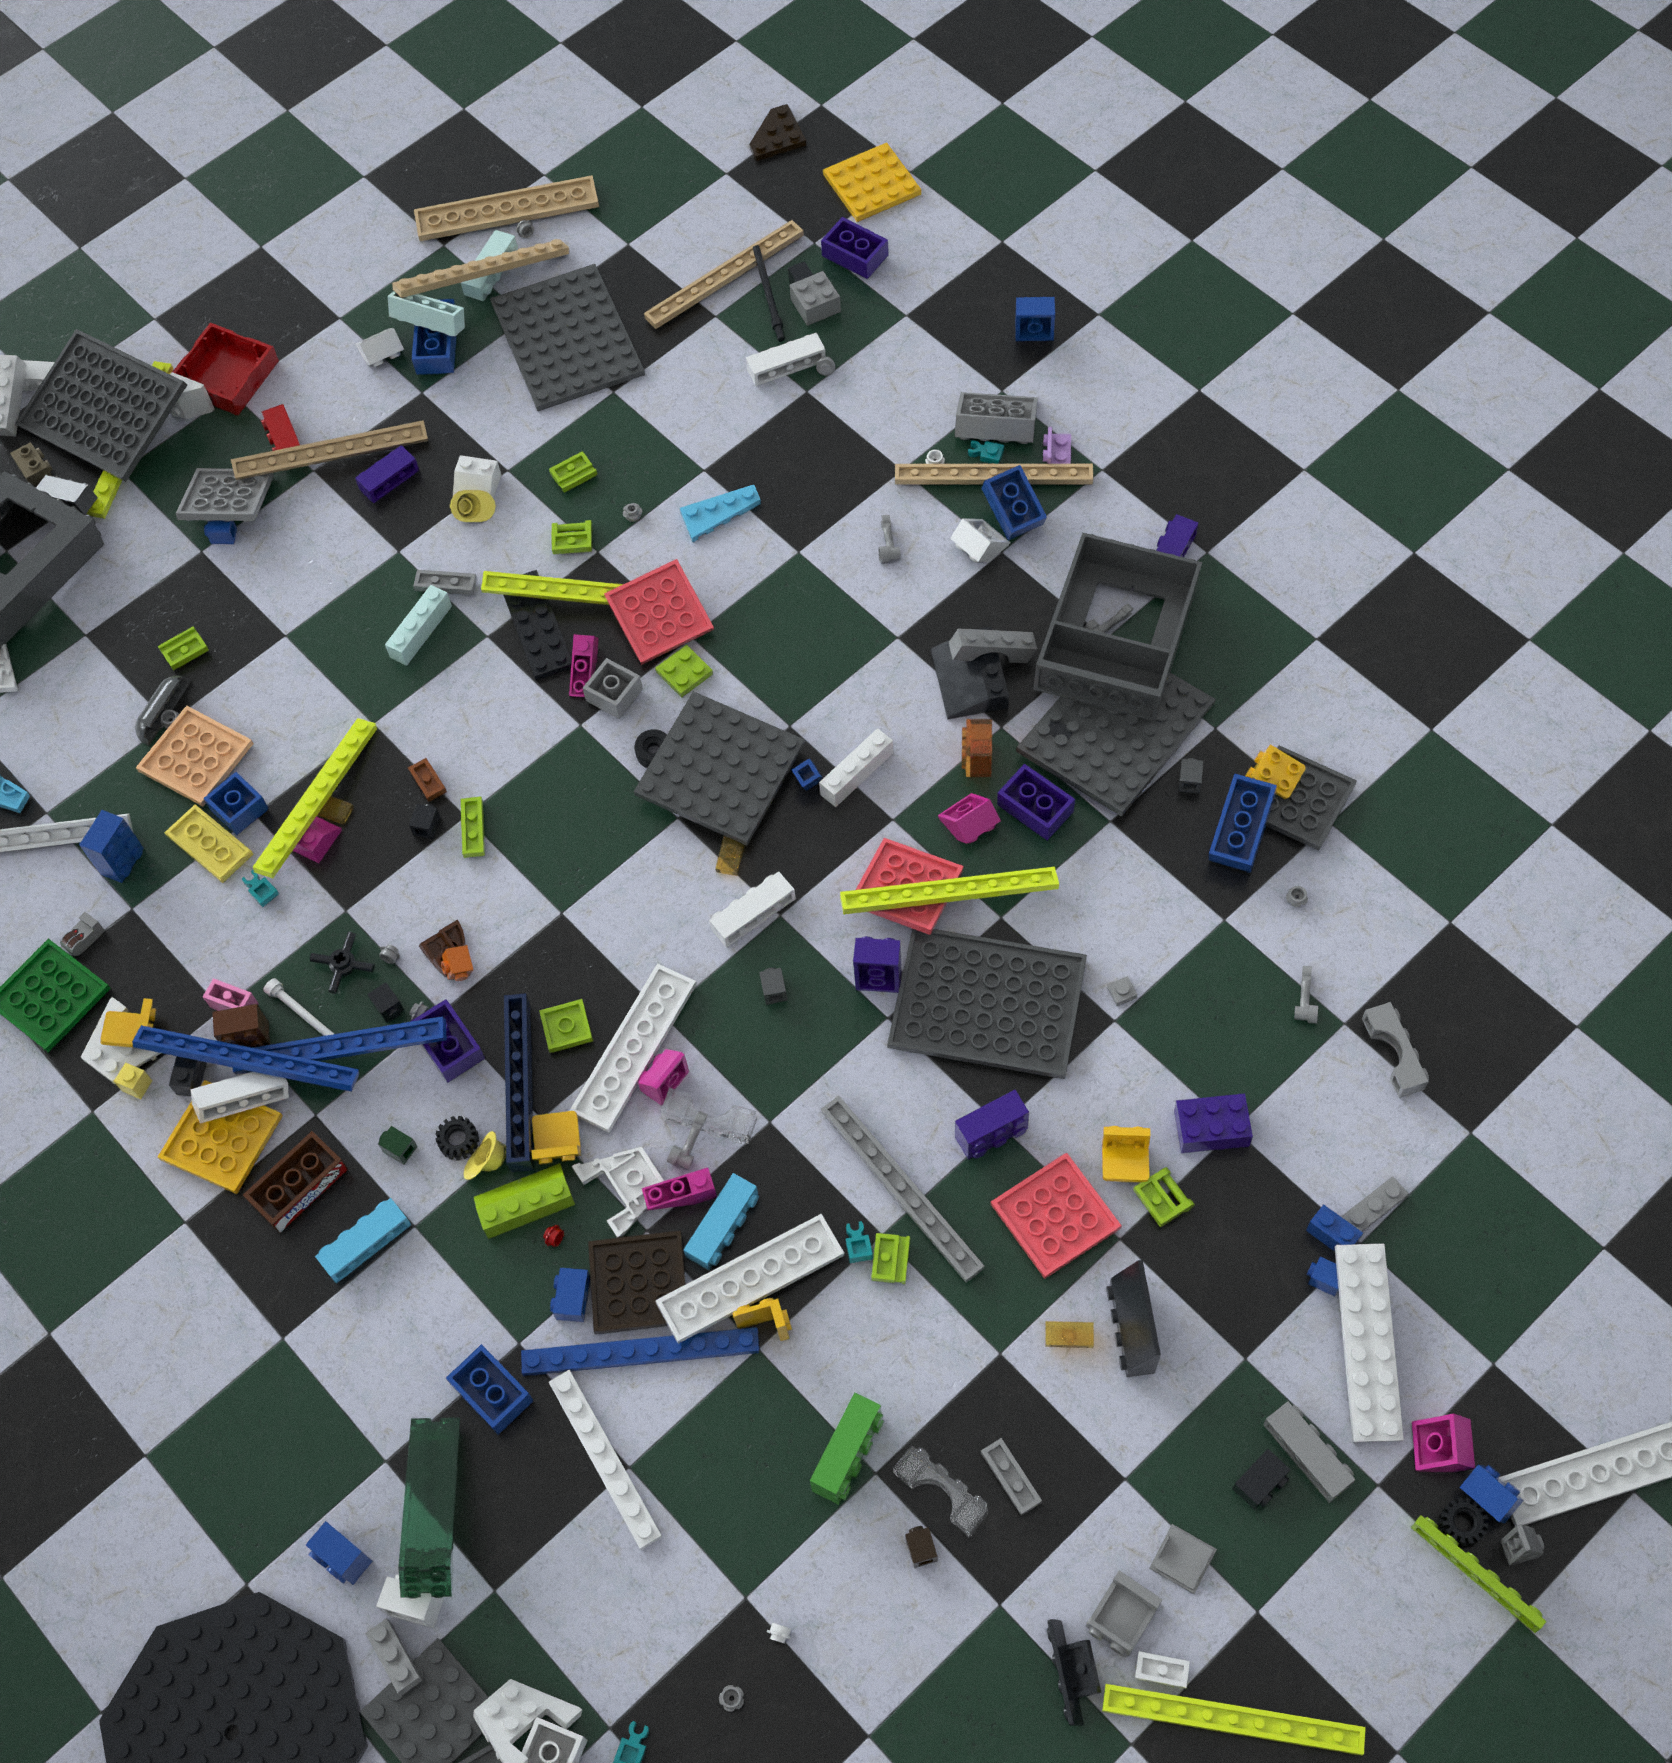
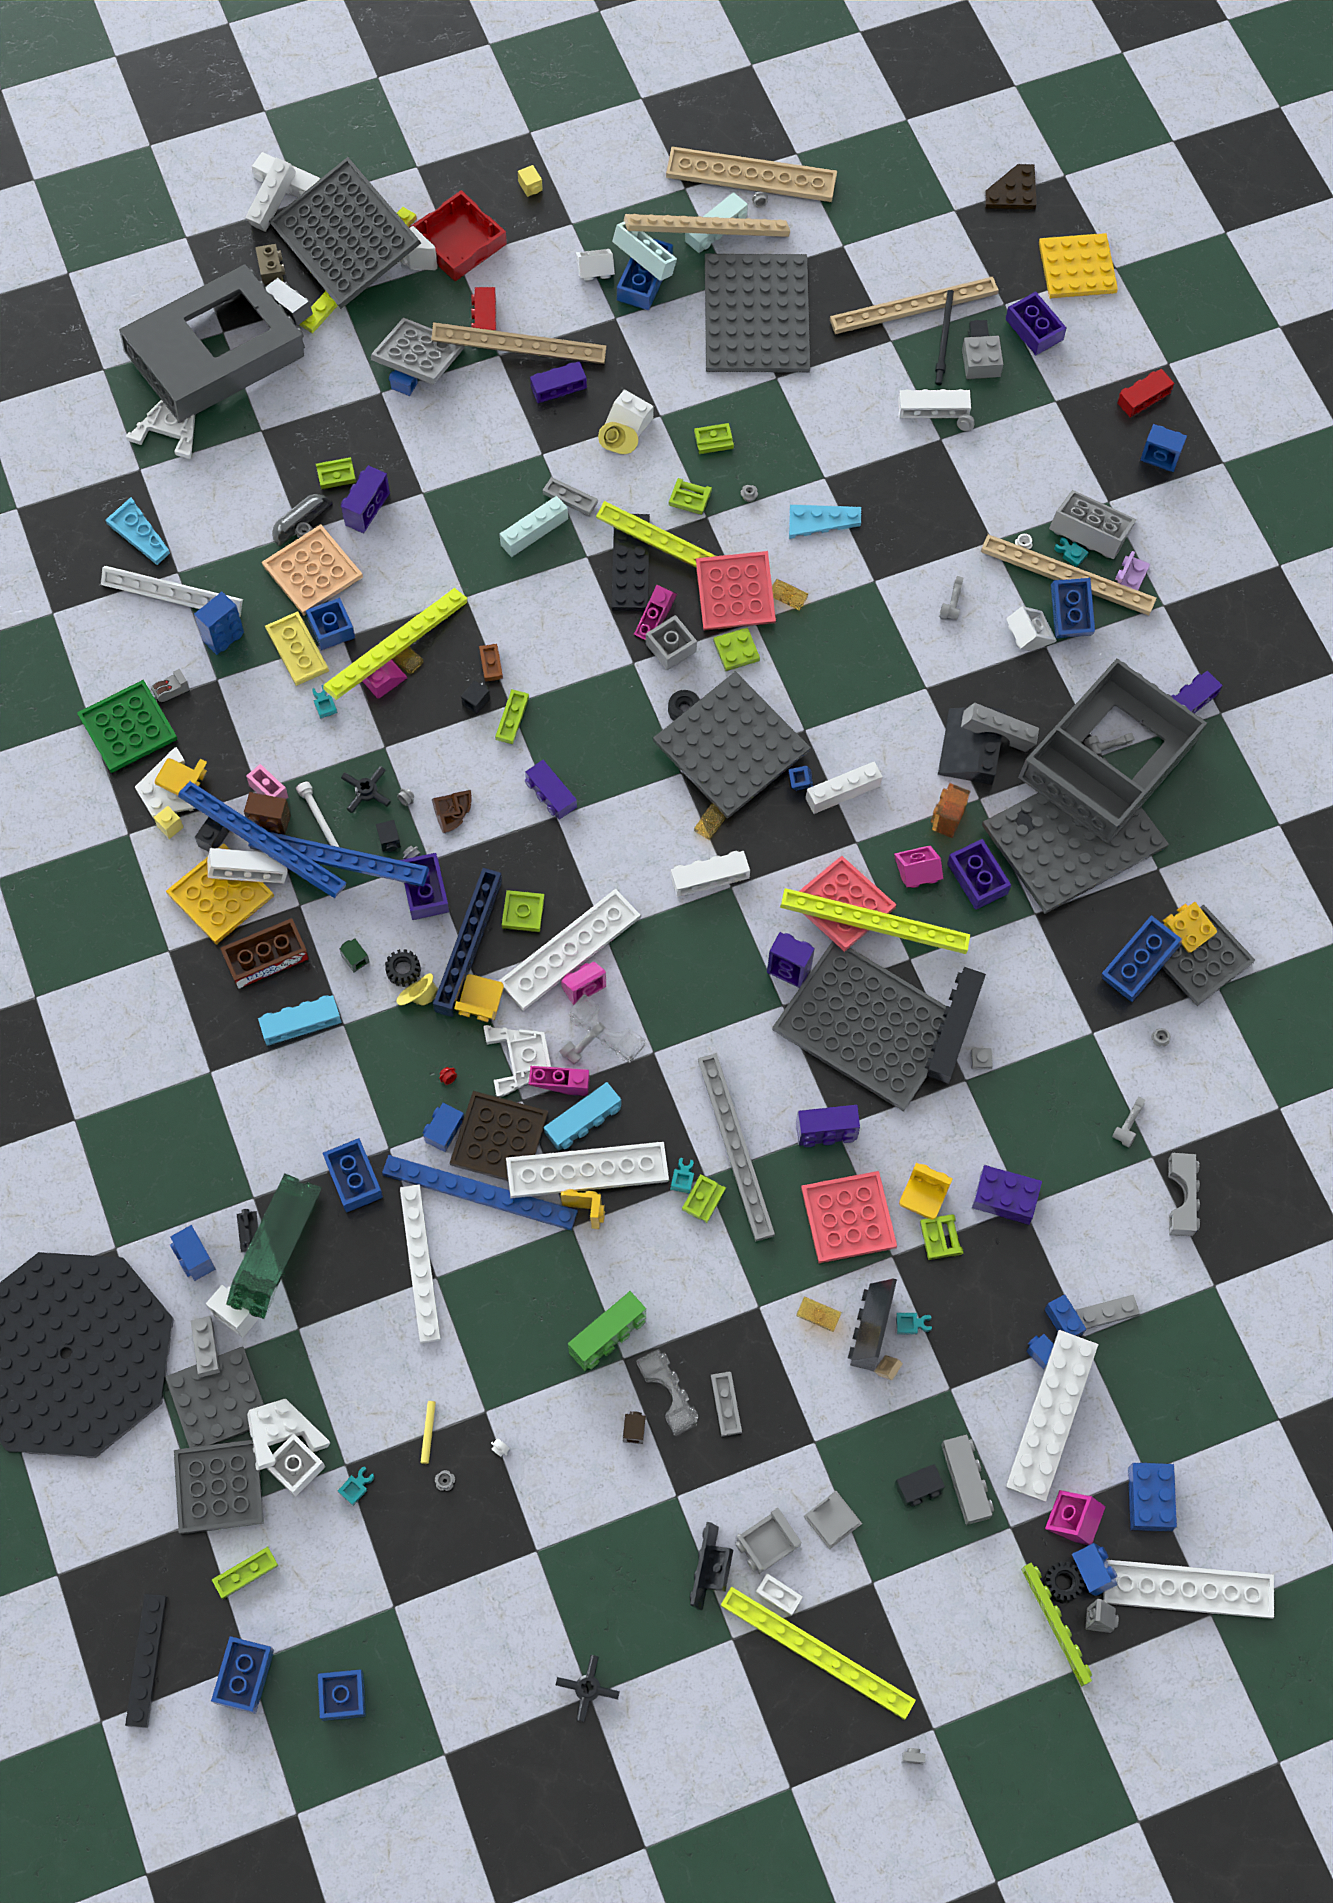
camera: 15 degrees right, 5 degrees up
(225, 662) = (365, 499): none -> dark purple brick
(279, 291) = (530, 180): none -> light yellow brick
(392, 1499) = (247, 1227): none -> black hinge
(457, 963) = (456, 826): orange brick -> none
(523, 1201) = (435, 1039): lime slope -> none
(544, 887) = (550, 790): none -> dark purple brick
(690, 1650) = (428, 1432): none -> light yellow bar
(716, 596) = (789, 594): none -> clear yellow plate
(773, 985) = (701, 943): dark grey brick -> none
(992, 275) = (1145, 392): none -> red brick
(1081, 965) = (956, 1024): none -> black brick
(1170, 1362) = (888, 1367): none -> tan plate
(1171, 1305) = (909, 1323): none -> teal plate
(1190, 775) = (1118, 901): dark grey brick -> none
(1514, 1387) = (1152, 1497): none -> blue brick

